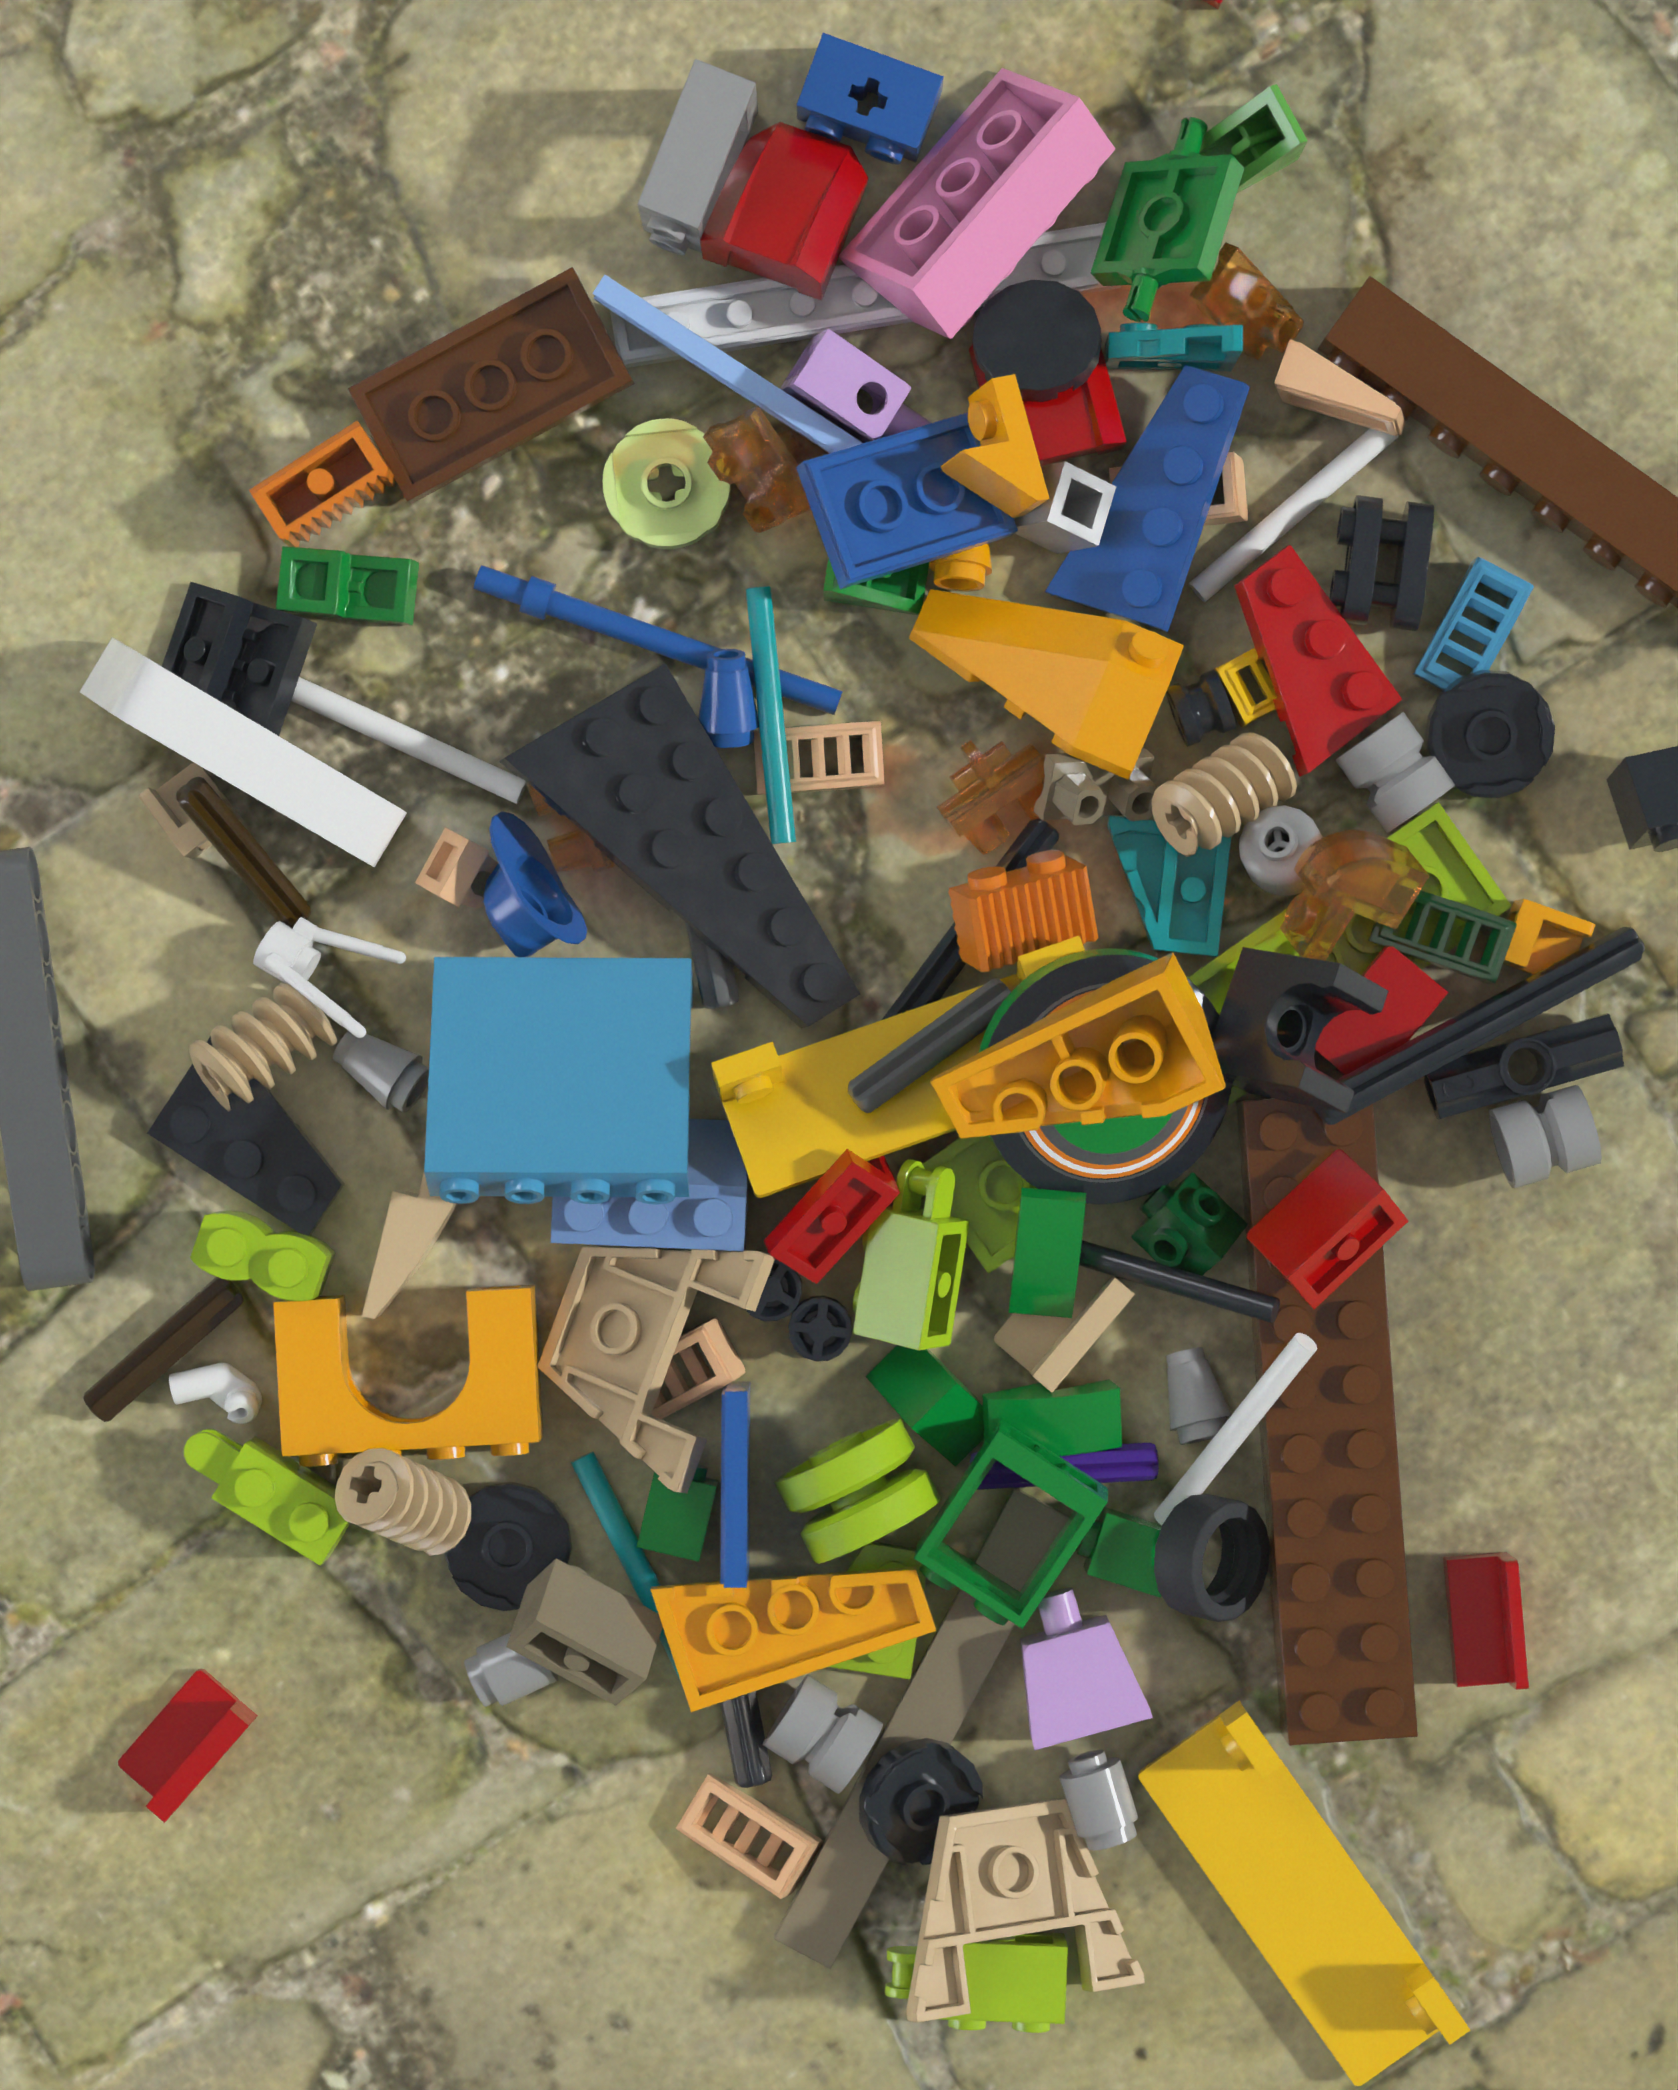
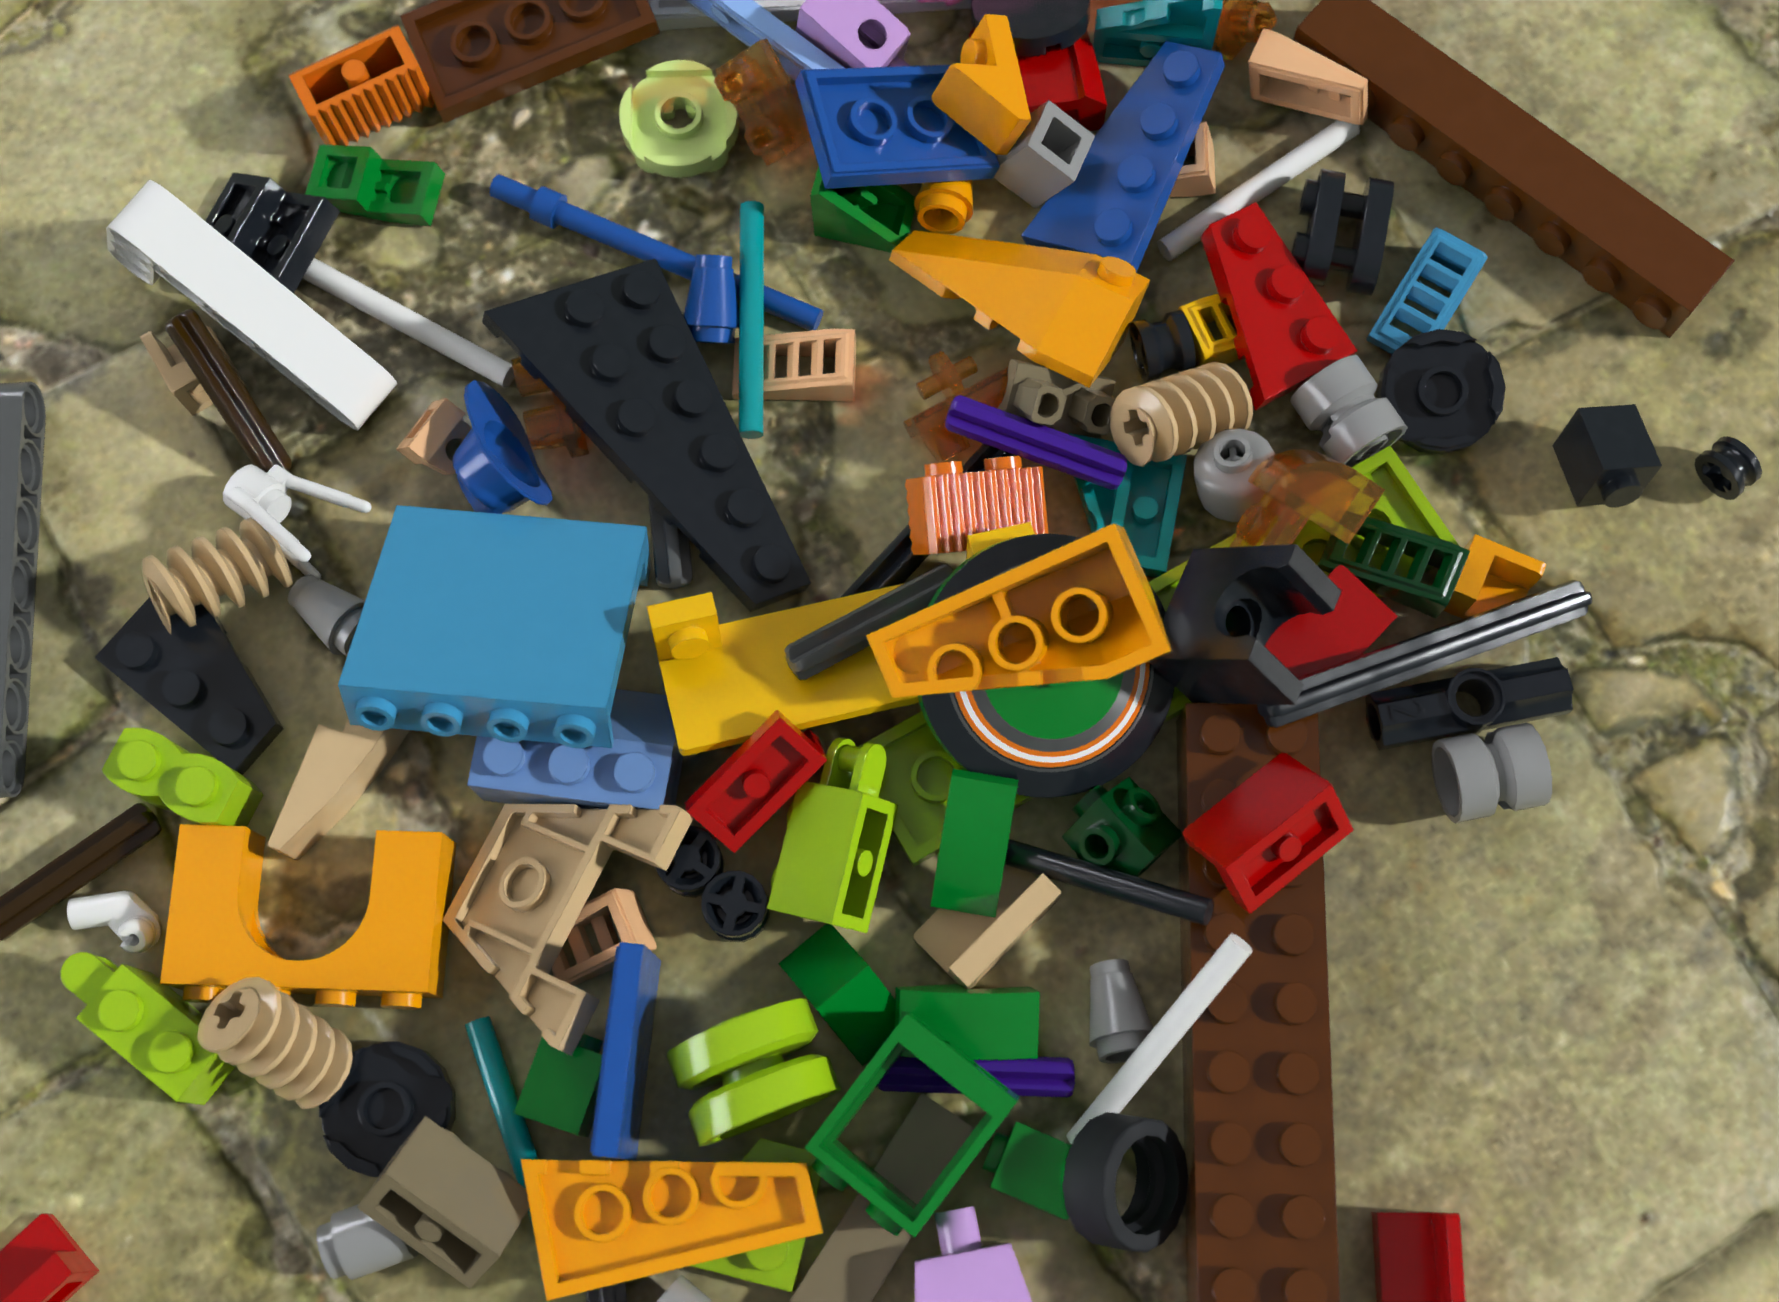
camera: 10 degrees right, 15 degrees down
(1080, 842) = (1036, 442): none -> dark purple axle

